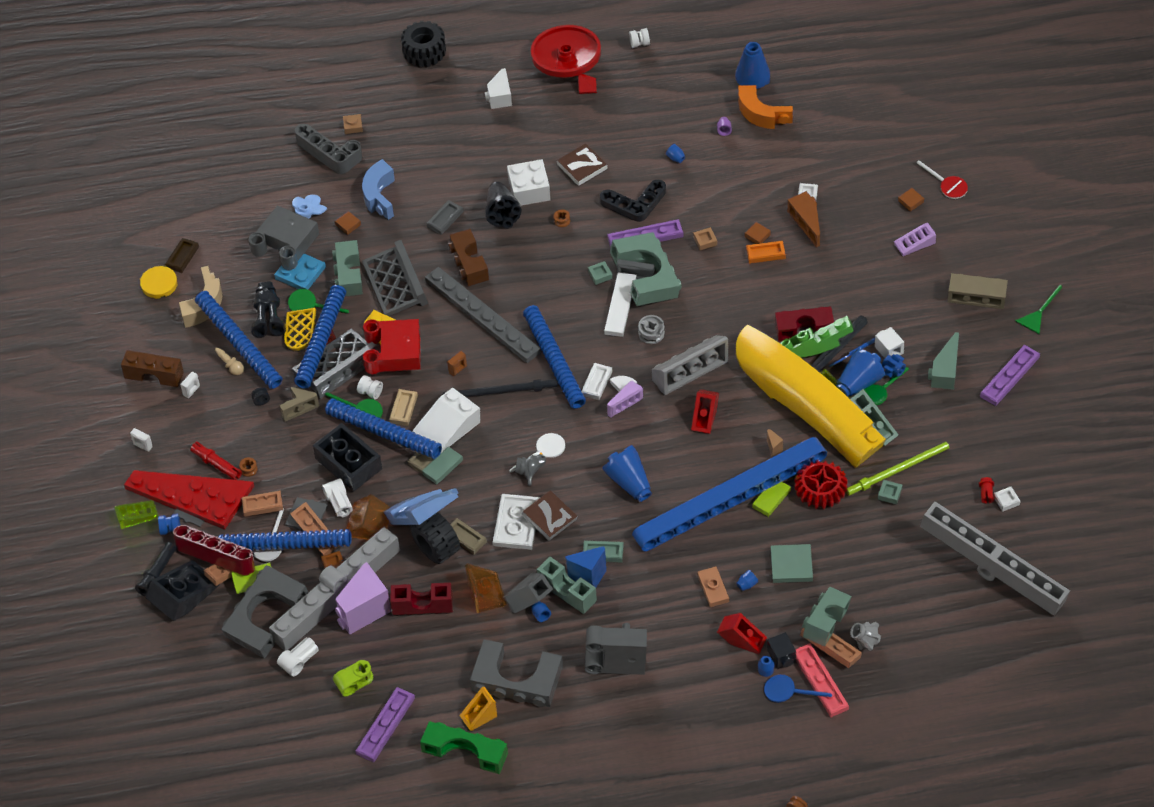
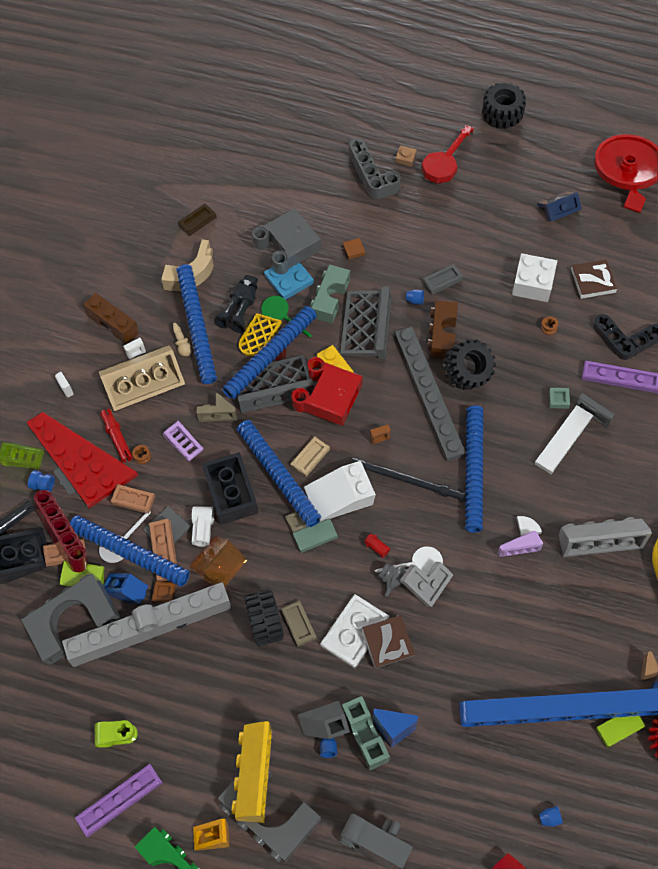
camera: 25 degrees right, 10 degrees up
(158, 282) = (164, 237): yellow tile -> none
(211, 405) = (142, 377): none -> tan slope
(260, 396) = (188, 387): black bush -> none
(276, 434) = (168, 435): none -> lavender slope
(294, 660) = (70, 683): white piece -> none
(301, 568) = (125, 588): none -> blue slope
(308, 206) = (327, 218): light blue plate -> none
(362, 600) = (162, 652): lavender slope -> none
(368, 405) = (277, 441): green piece -> none
(369, 387) = (289, 423): white wheel -> none
(373, 183) = (394, 219): medium blue arch -> none
(392, 120) = (441, 166): none -> red piece
(420, 508) = (261, 591): medium blue wedge -> none
(427, 241) = (415, 296): none -> blue hose
(436, 600) = (213, 676): dark red arch -> none
(484, 588) = (287, 693): clear orange slope -> none
(490, 642) = (253, 772): none -> yellow slope
(499, 91) = (550, 176): white slope -> none
(500, 449) = (377, 545): none -> red pin
(501, 206) = (498, 291): black cone -> none
(502, 285) = (483, 364): none -> black tyre
(521, 112) = (561, 205): none -> dark blue panel
(561, 460) = (427, 587): none -> light grey plate
(596, 381) = (503, 512): white tile -> none
(613, 550) = (422, 706): sand green tile -> none
(629, 473) = (486, 634): blue cone -> none
(648, 249) = (616, 394): sand green arch -> none
(651, 328) = (582, 480): light grey wheel -> none
(705, 411) = (594, 596): red slope -> none
(713, 586) = (513, 805): nougat plate -> none
(791, 563) = (607, 818): sand green tile -> none

